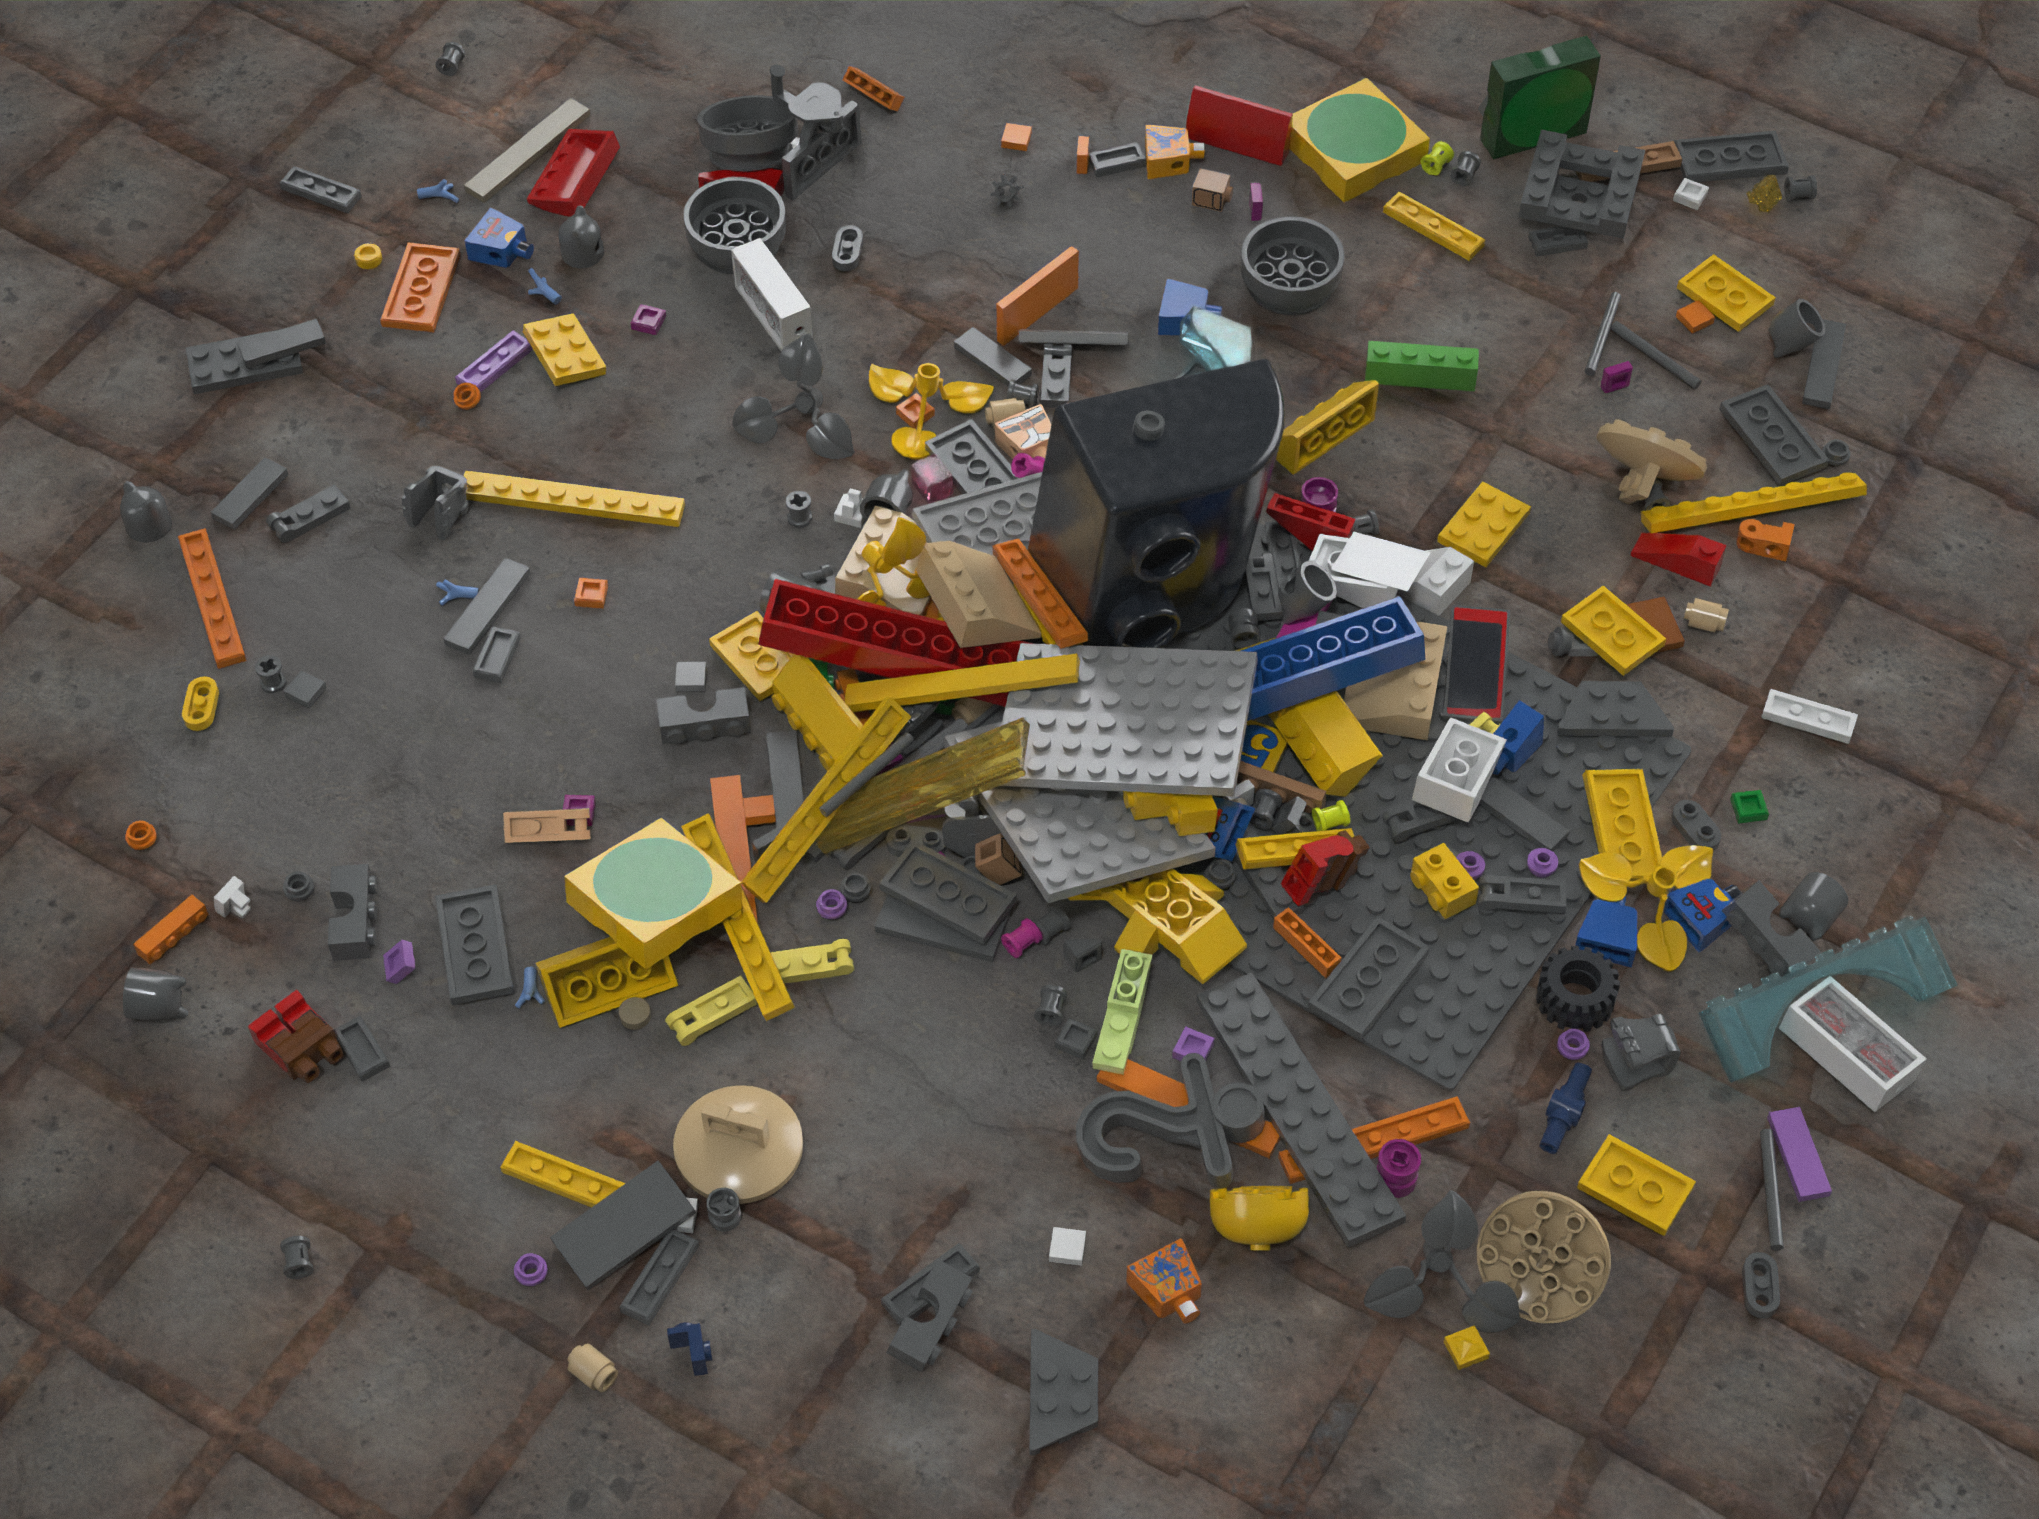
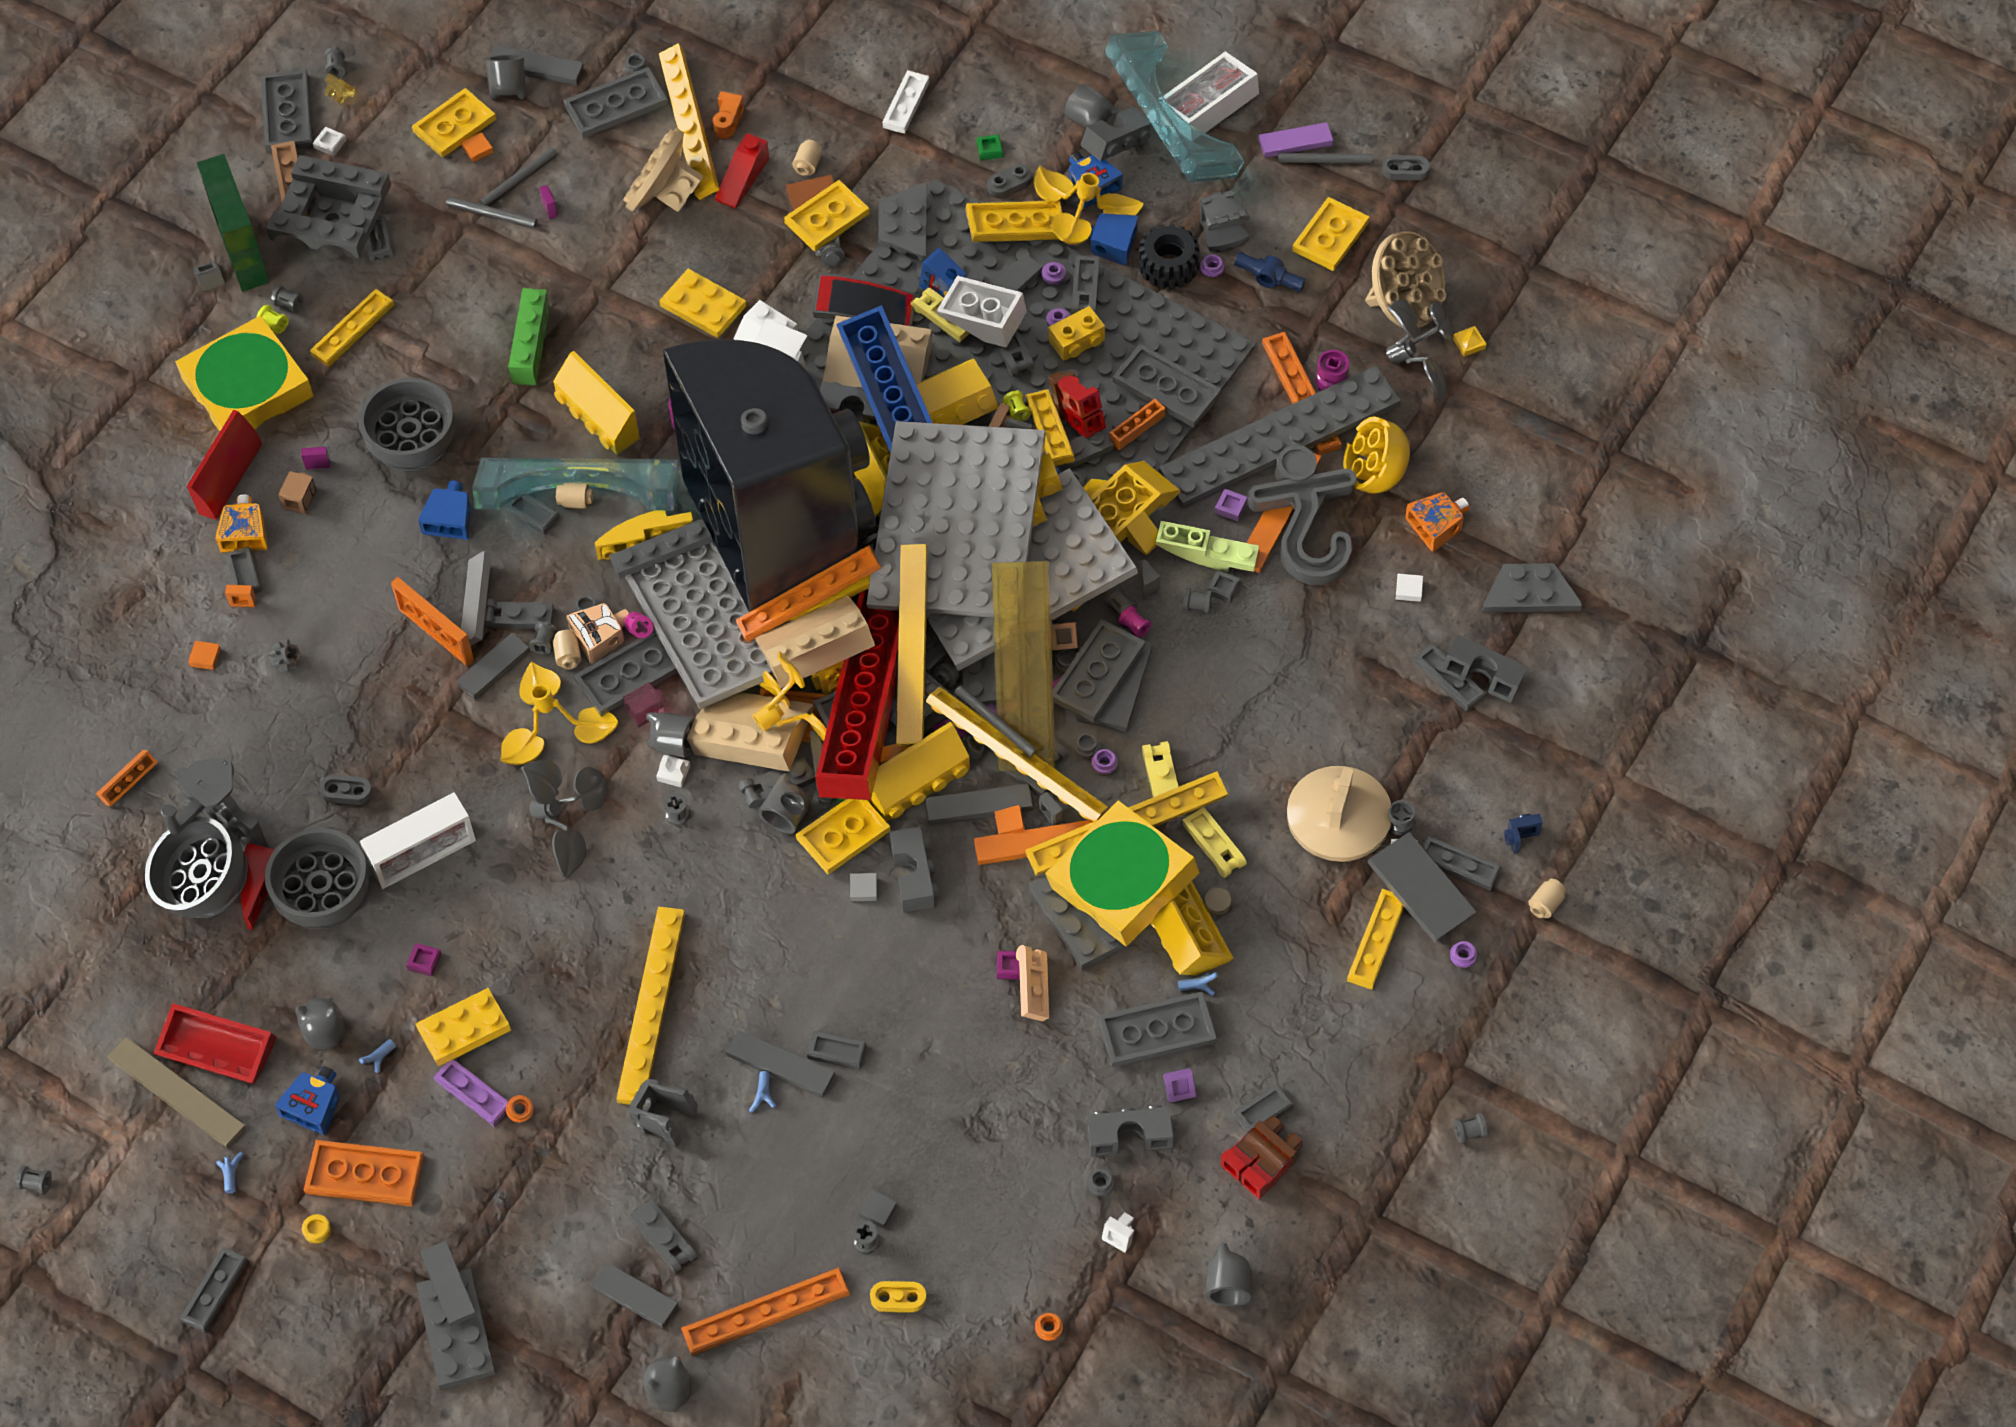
camera: 90 degrees left, 5 degrees up
(171, 929) = (1151, 1282): orange piece -> none
(591, 593) = (765, 977): orange tile -> none
(910, 410) = (555, 726): orange tile -> none

